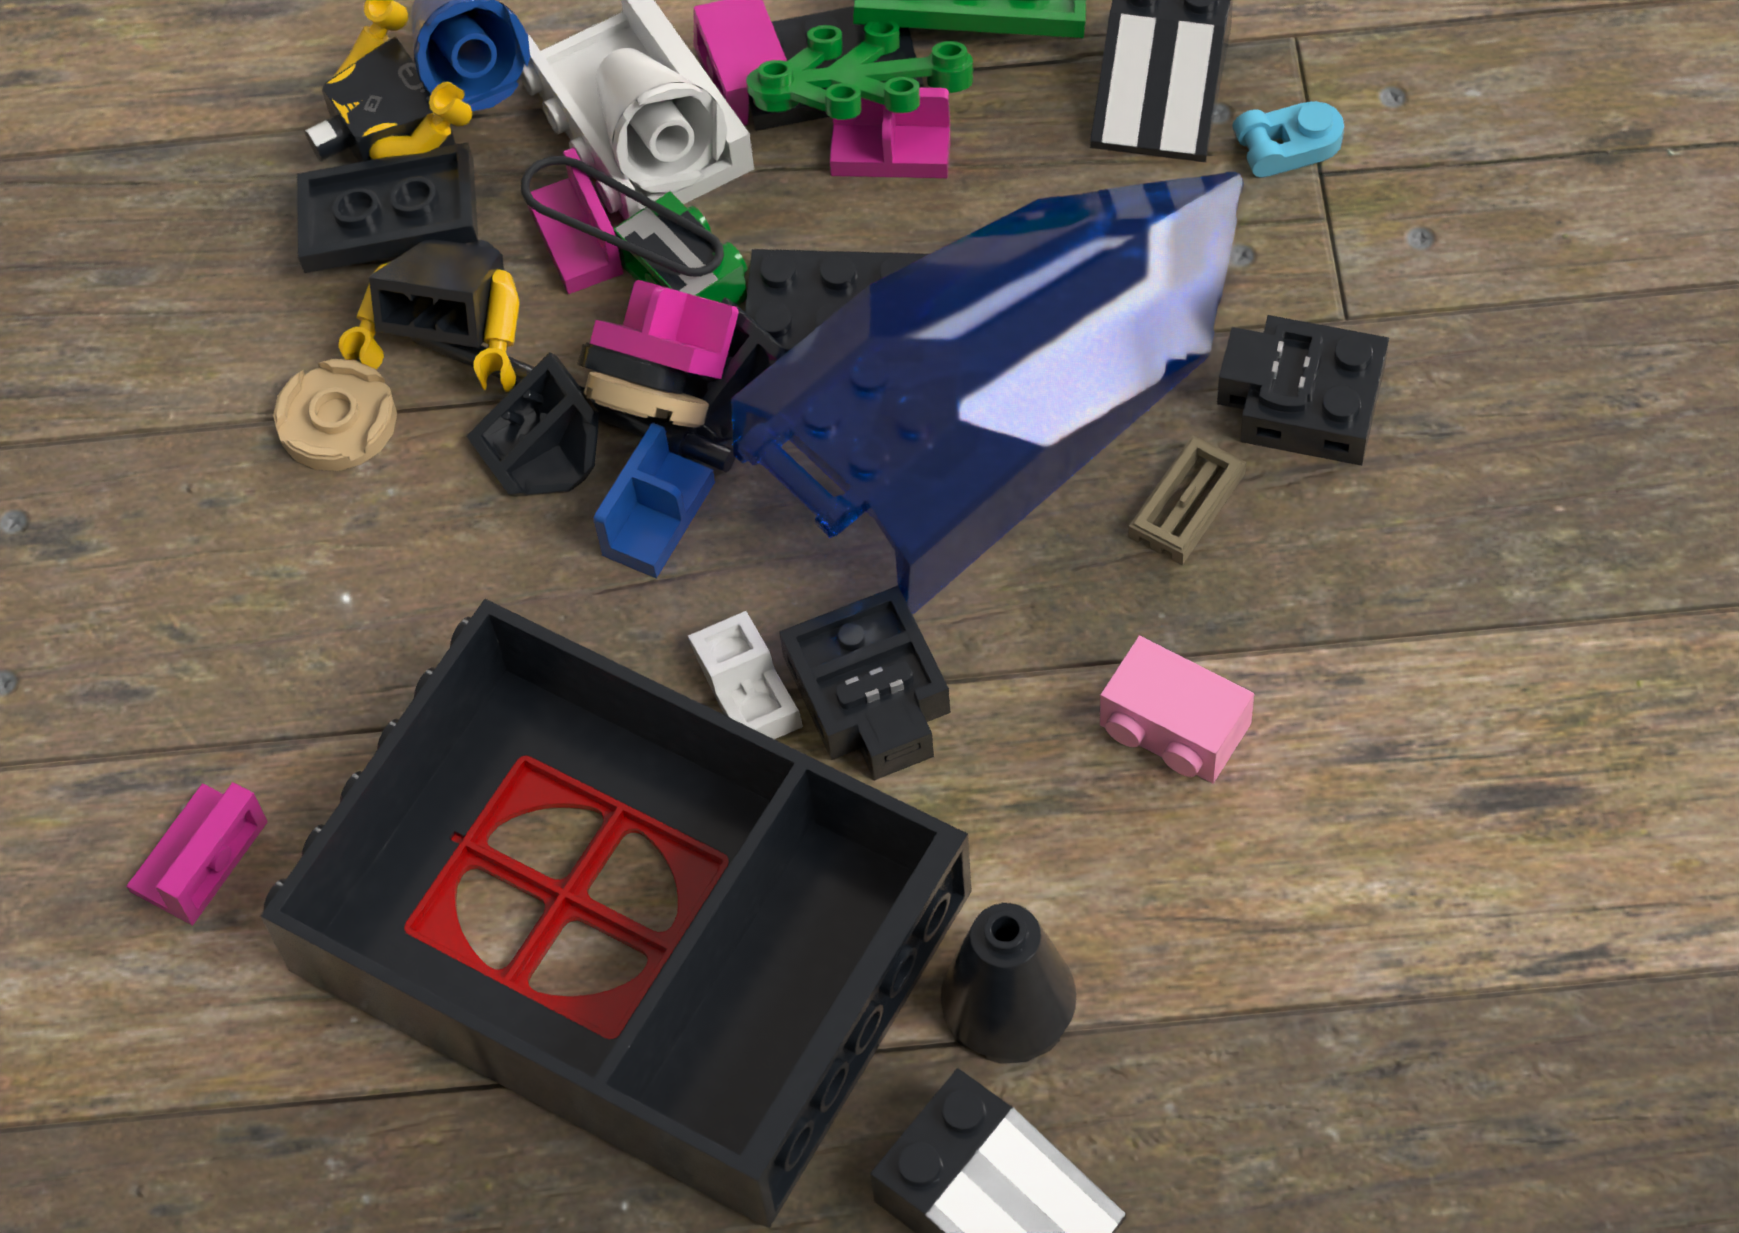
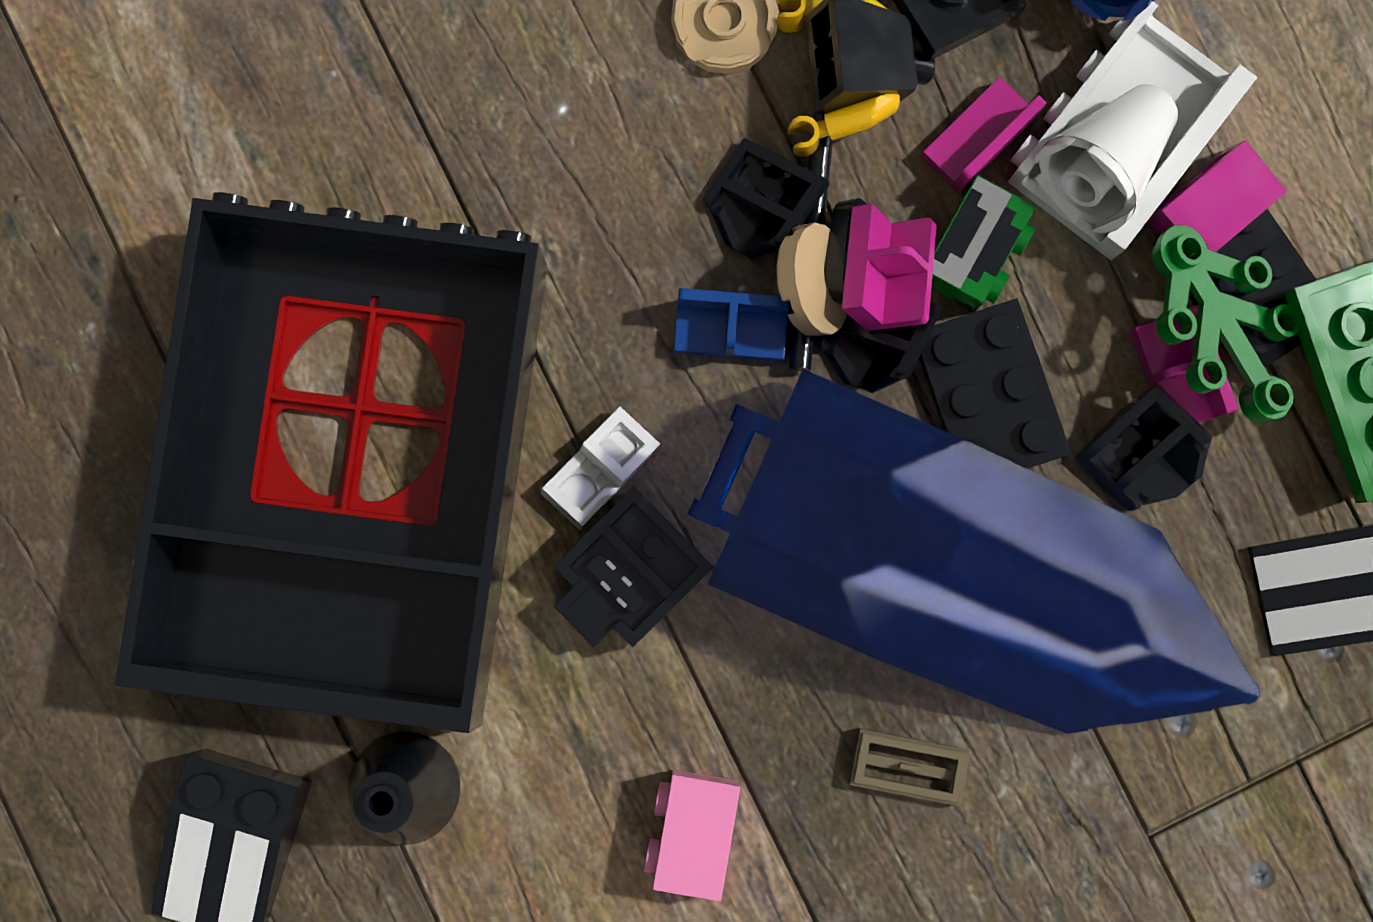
camera: 60 degrees right, 25 degrees up
(199, 851) = (293, 103): dark pink panel -> none
(625, 245) = (959, 169): black piece -> none
(952, 183) = (1147, 451): none -> black slope
(1304, 387) = (1055, 834): black piece -> none
(1309, 134) = (1333, 740): medium azure plate -> none

